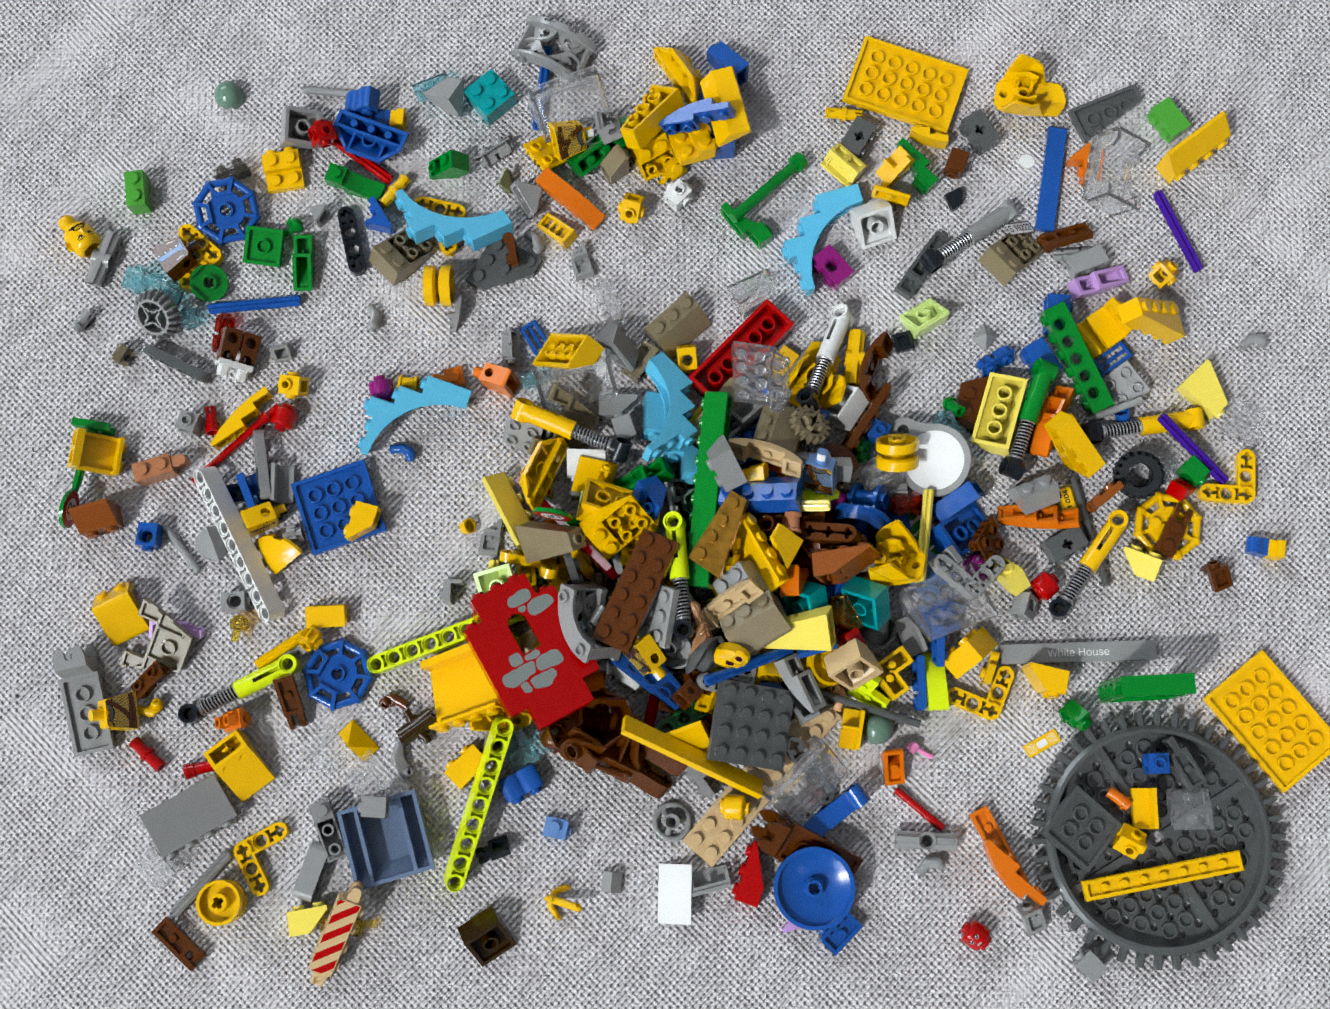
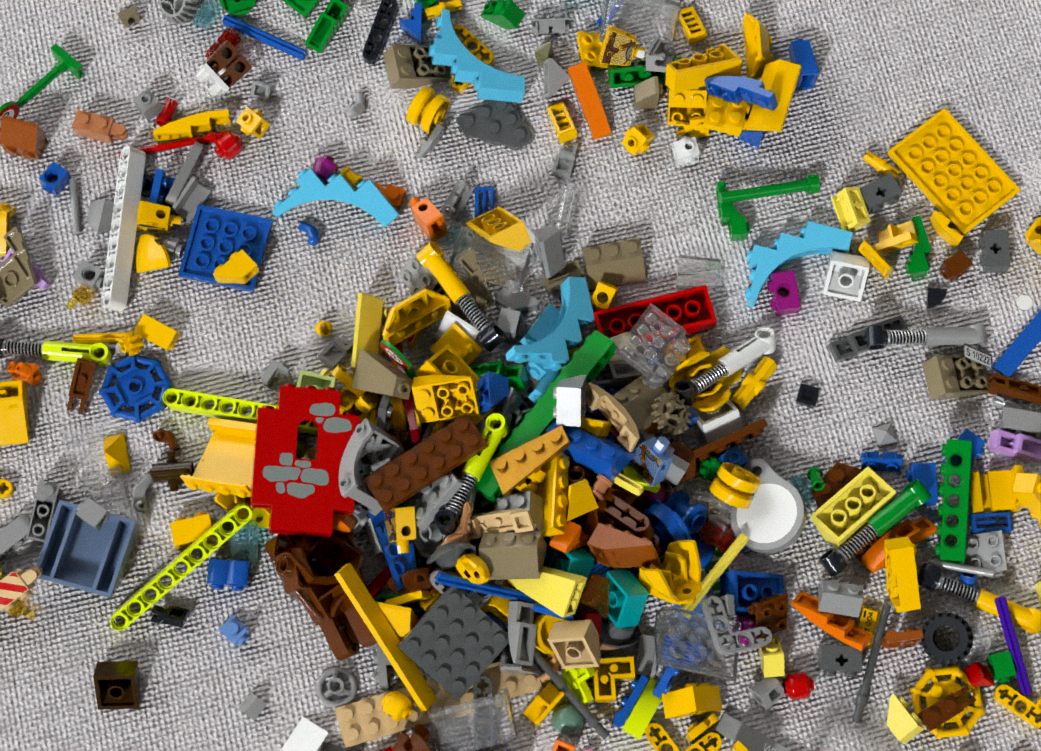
camera: 30 degrees right, 5 degrees down
(96, 453) = (55, 84): yellow panel -> none
(176, 363) = (168, 49): dark grey beam -> none
(512, 256) = (506, 122): reddish brown plate -> none
(536, 240) = (538, 120): light grey arm -> none
(552, 899) = (192, 689): yellow piece -> none
(619, 95) = (692, 37): none -> yellow slope
(688, 713) = (409, 598): none -> yellow tile
(879, 349) = (765, 395): reddish brown slope -> none
(924, 318) = (839, 386): yellowish green slope -> none
(957, 500) = (768, 561): blue slope -> none
(1090, 562) = (851, 689): piece -> none

